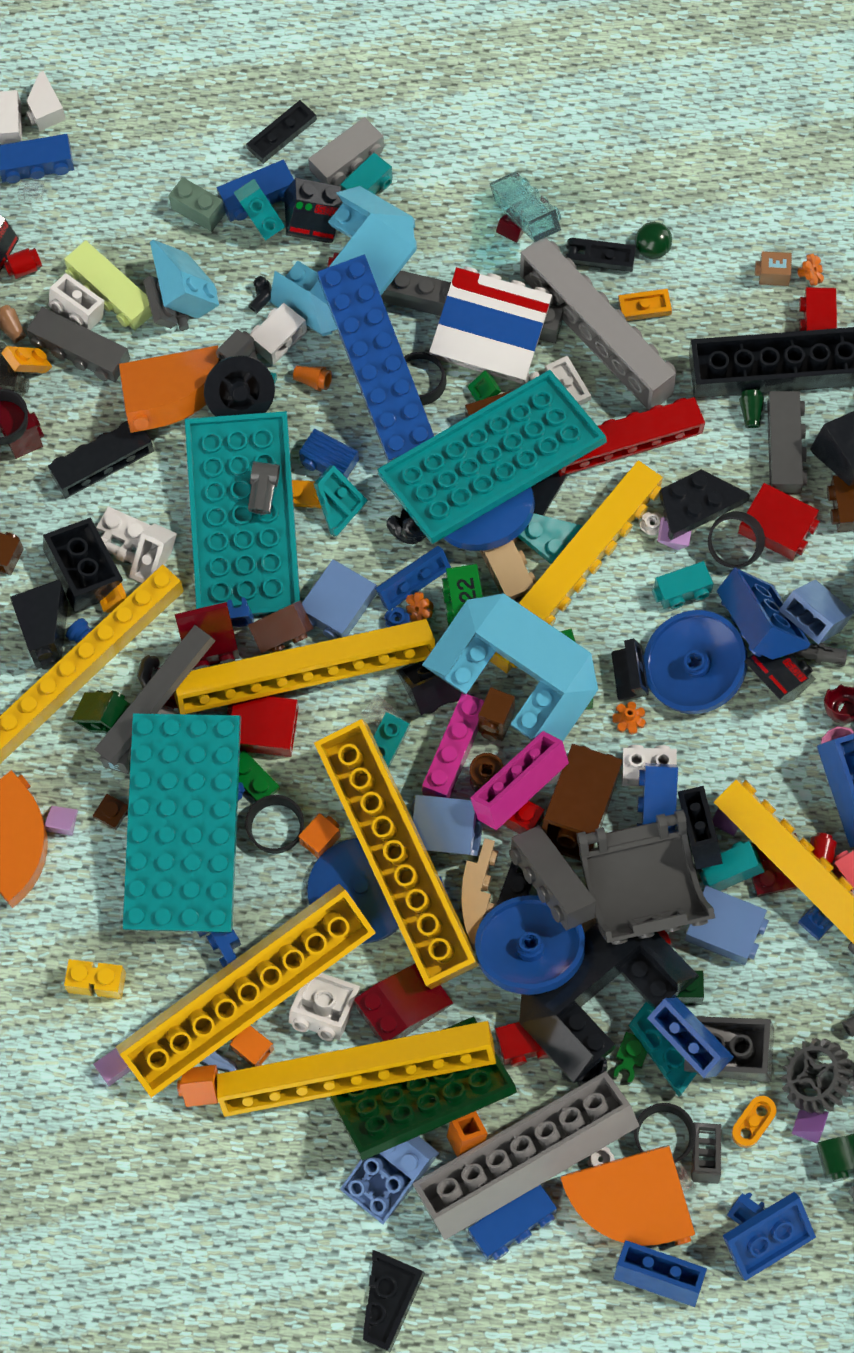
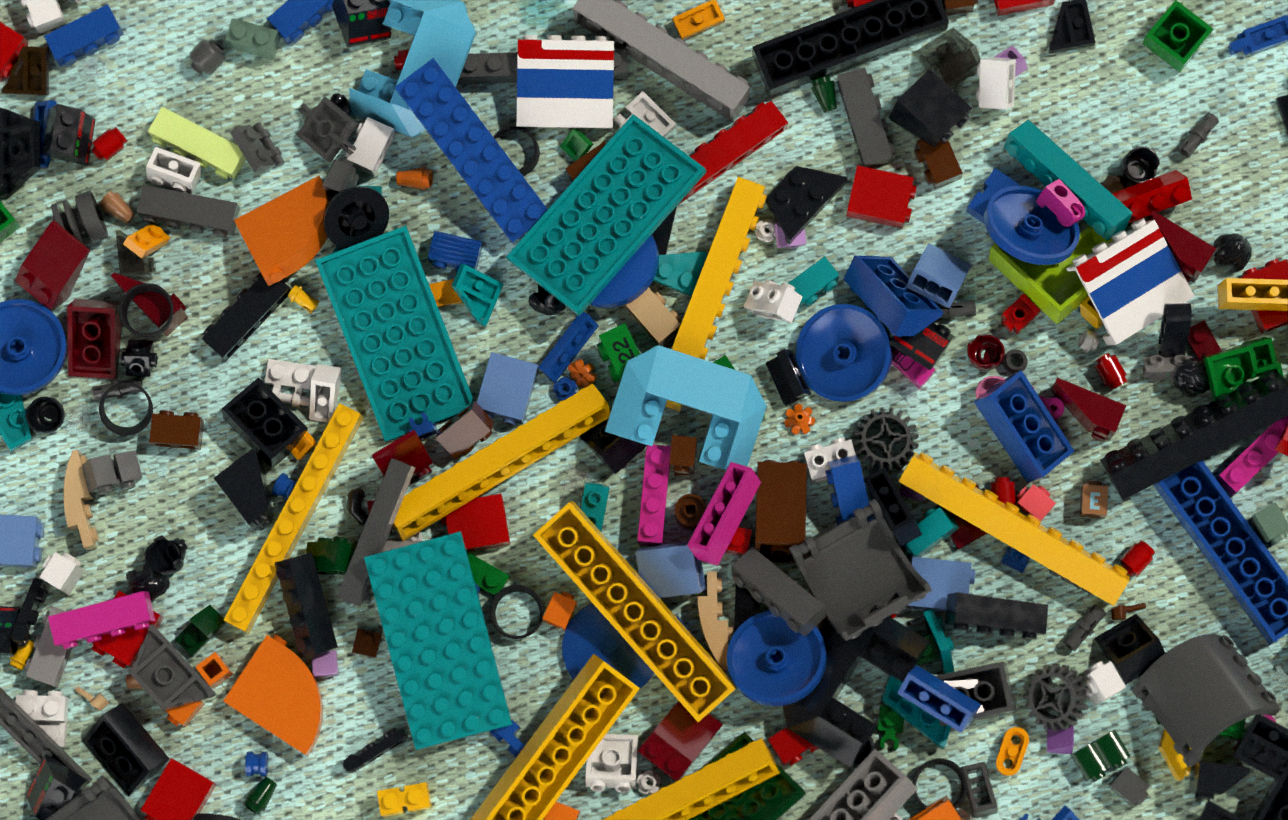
camera: 15 degrees left, 10 degrees up
(60, 751) = (306, 605): none -> black brick
(81, 920) = (373, 751): none -> black hinge
(146, 209) = (207, 56): none -> dark grey head
(158, 454) = (303, 299): none -> yellow pin
(183, 282) = (266, 121): medium azure slope -> none
(241, 305) = (327, 129): none -> dark grey plate
(259, 209) = (315, 30): teal brick -> none
(263, 480) = (407, 299): dark grey piece -> none
(356, 1031) = (643, 778): none -> white plate
(637, 589) = (773, 301): none -> white brick
(702, 760) = (896, 437): none -> dark grey gear
(712, 984) = (944, 644): none -> teal wing
(755, 526) = (850, 206): black tyre -> none
(762, 698) = (911, 369): none -> dark pink leg
(778, 970) = (996, 614): none -> black brick

